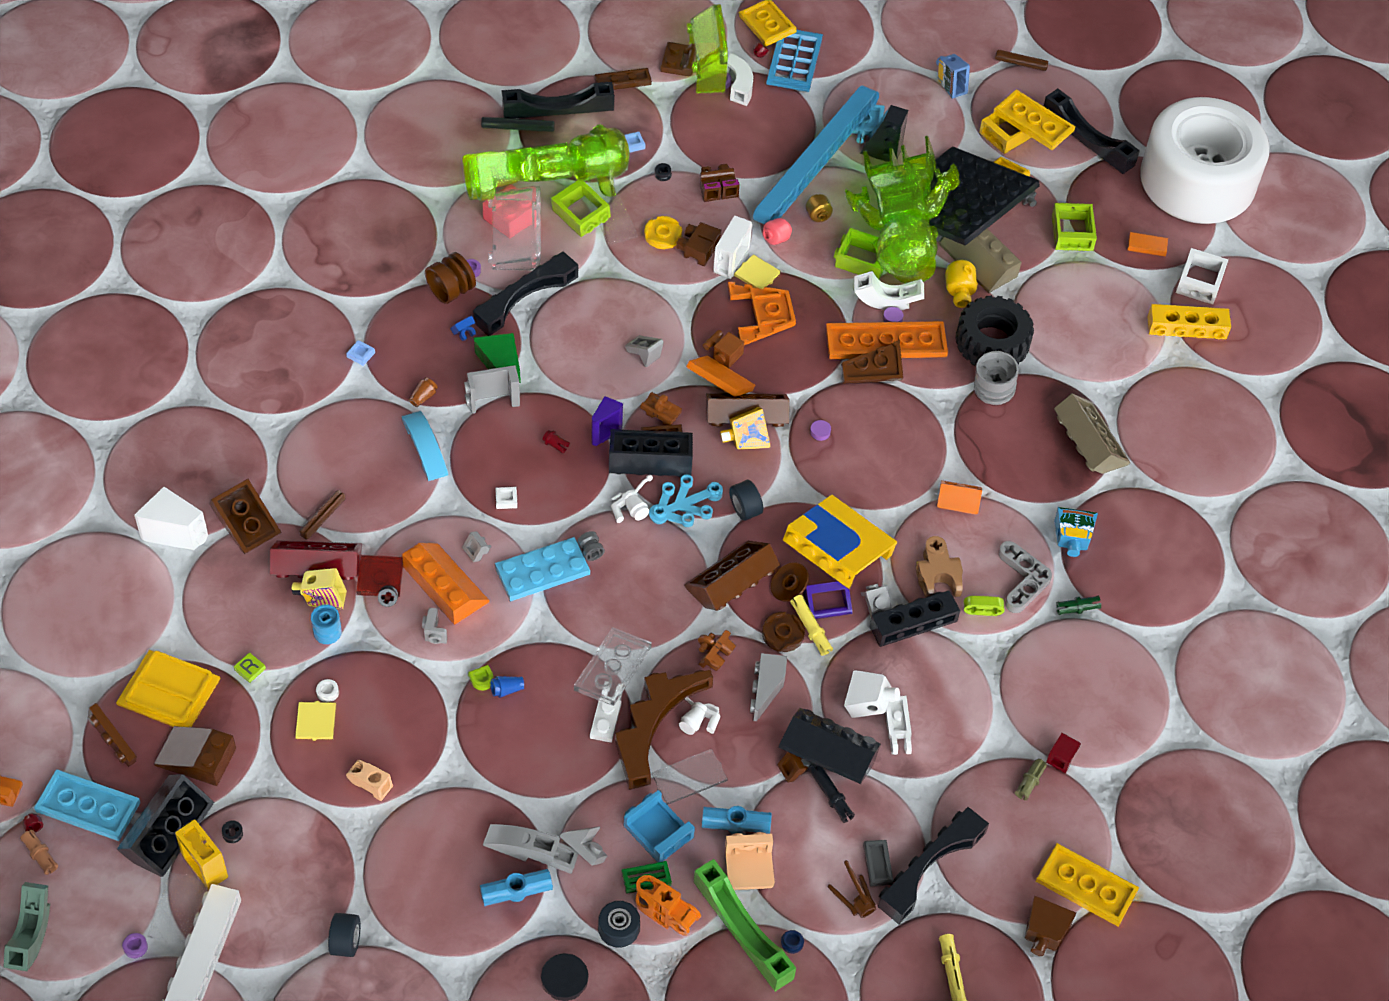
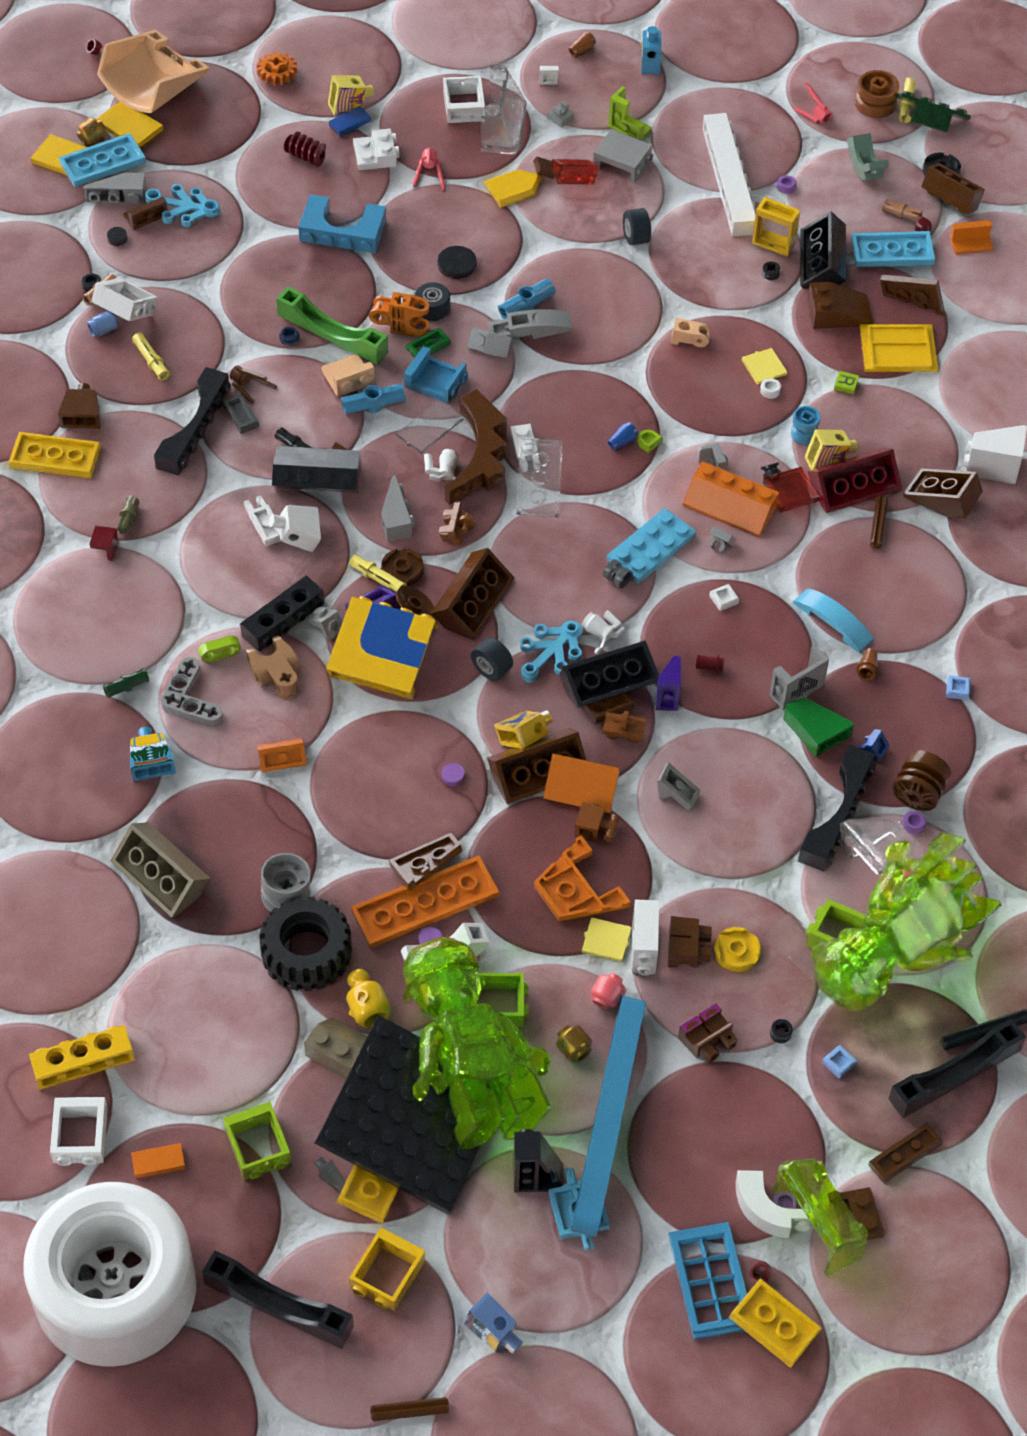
camera: 160 degrees right, 0 degrees up
(1034, 119) = (356, 1273): yellow tile -> none

